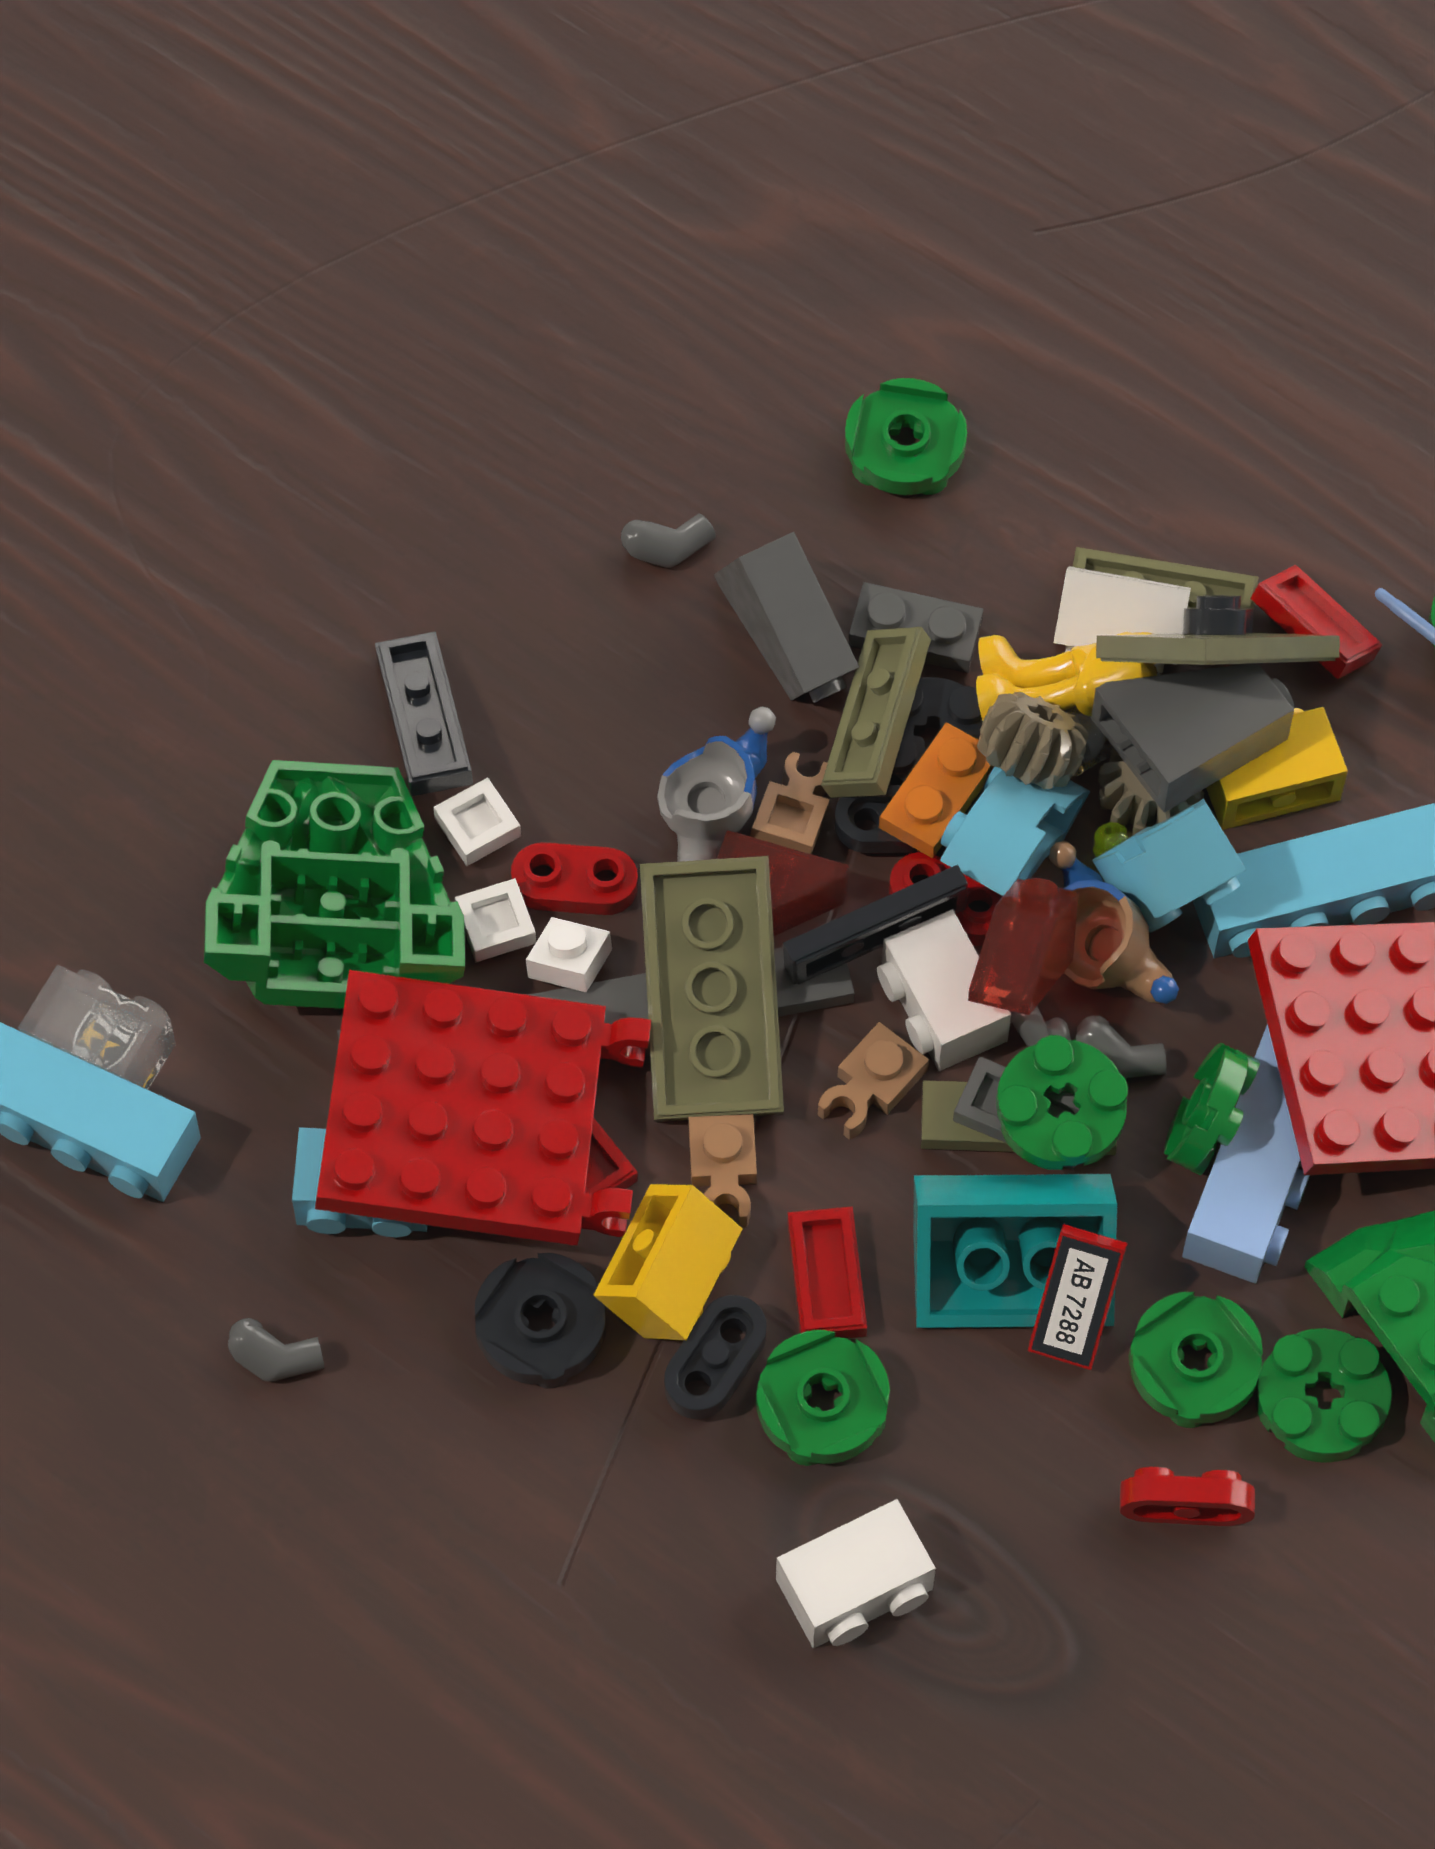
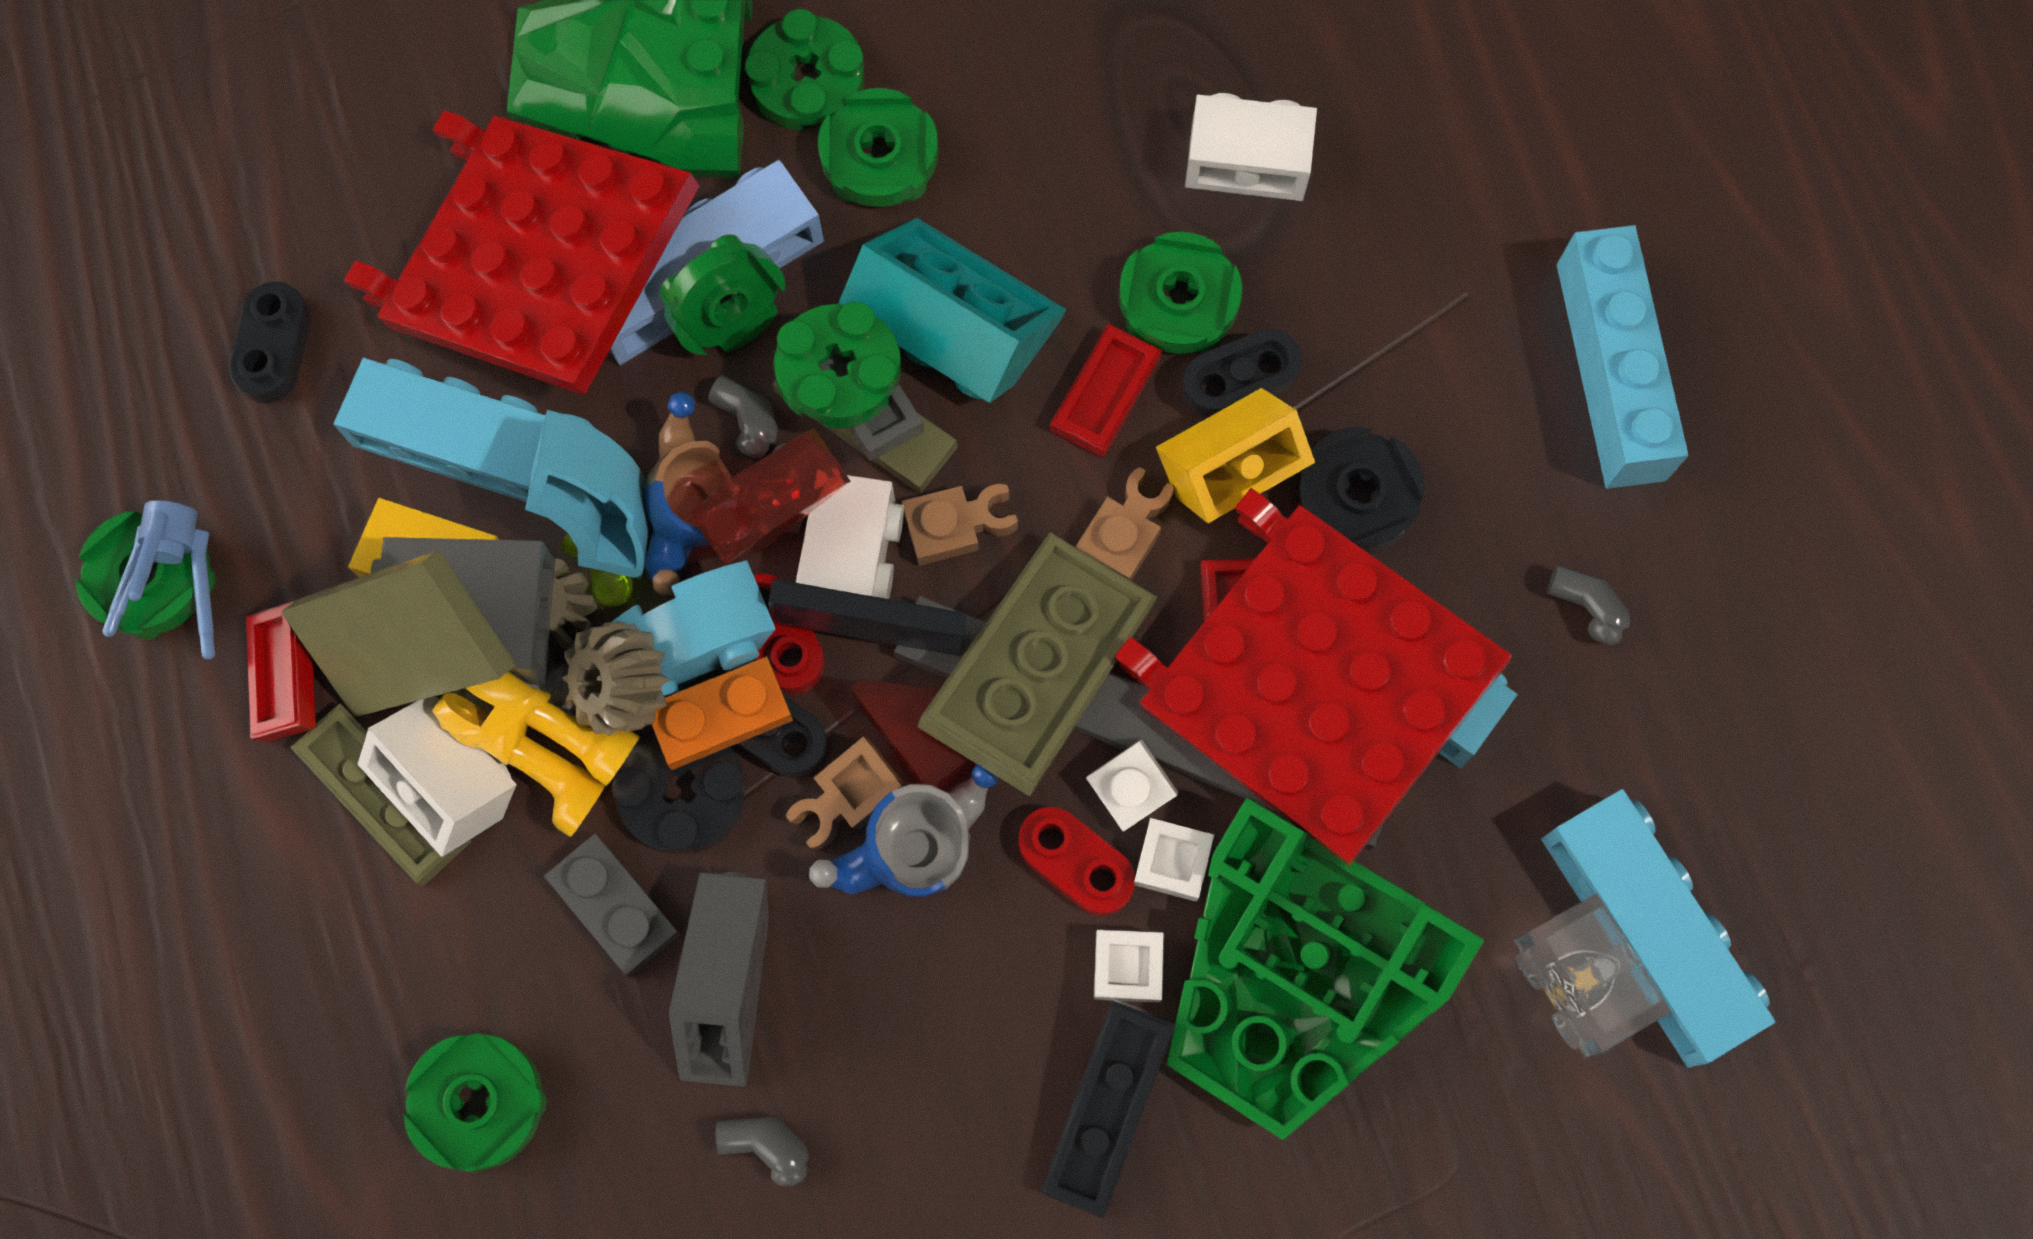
camera: 145 degrees left, 10 degrees up
(380, 1582) = (1621, 357): none -> medium azure brick
(876, 712) = (715, 823): olive tile -> none
(1077, 1296) = (936, 227): tile -> none
(1209, 1500) = (979, 58): red plate -> none
(1218, 616) = (366, 690): black plate -> none

